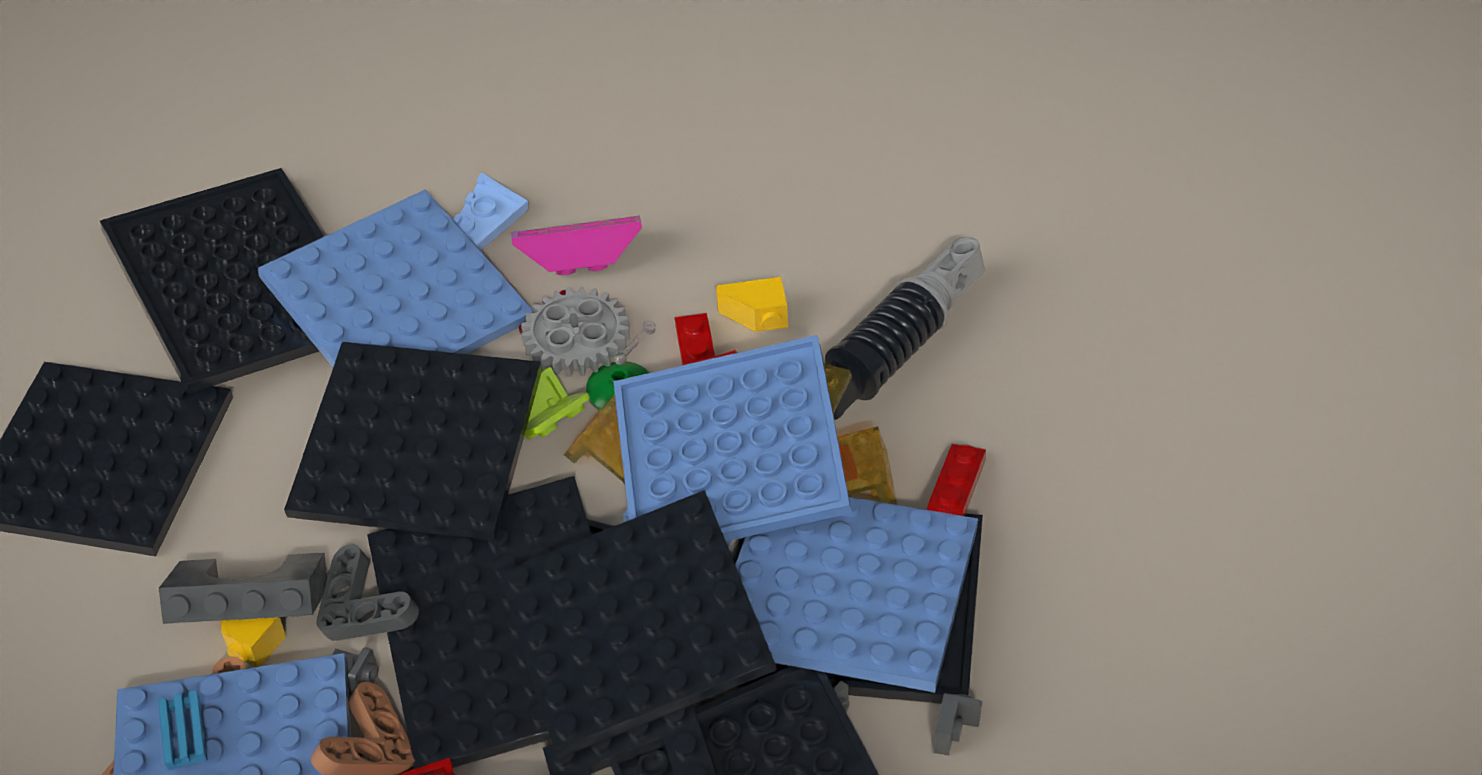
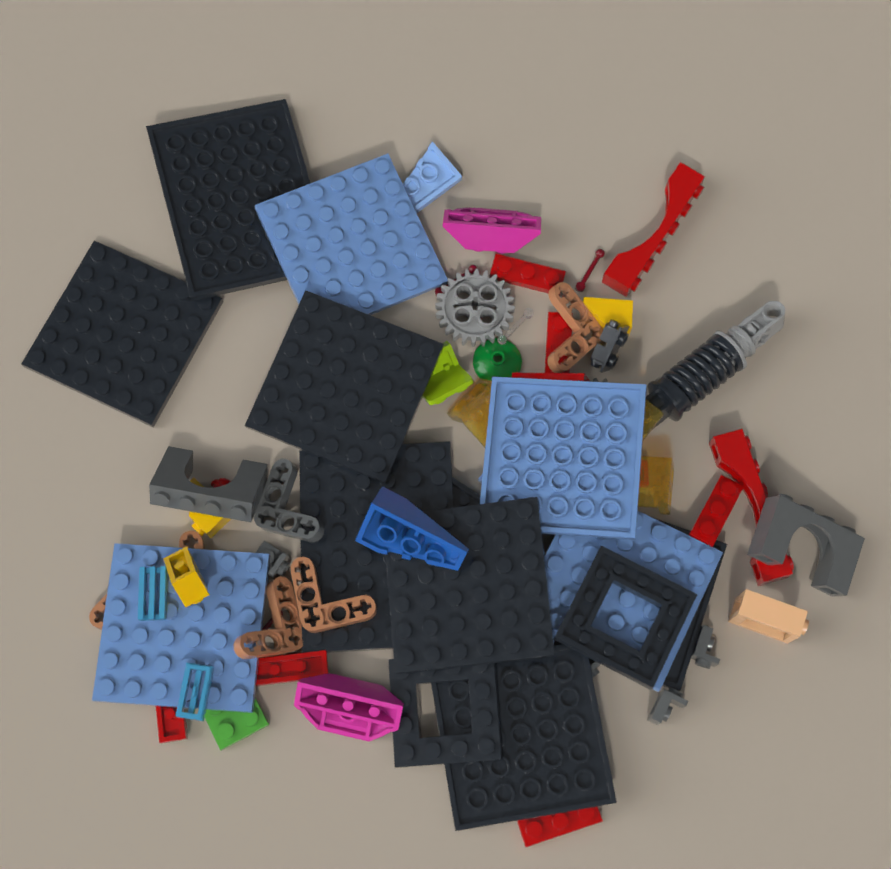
camera: 10 degrees right, 25 degrees up
(230, 696) = (186, 577): none -> yellow slope
(437, 704) = (325, 611): none -> nougat beam
(530, 568) = (403, 529): none -> blue wedge
(641, 286) = (526, 273): none -> red plate
(685, 291) = (580, 328): none -> nougat beam
(710, 286) = (580, 286): none -> dark red hinge
(768, 315) = (607, 355): none -> black hinge
(769, 248) = (628, 266): none -> red arch
(903, 650) = (636, 665): none -> black plate
(963, 420) = (734, 457): none -> red arch
(986, 649) = (703, 644): none -> dark grey bracket
(1068, 561) = (768, 616): none -> light nougat window
(1128, 481) = (837, 544): none -> dark grey arch

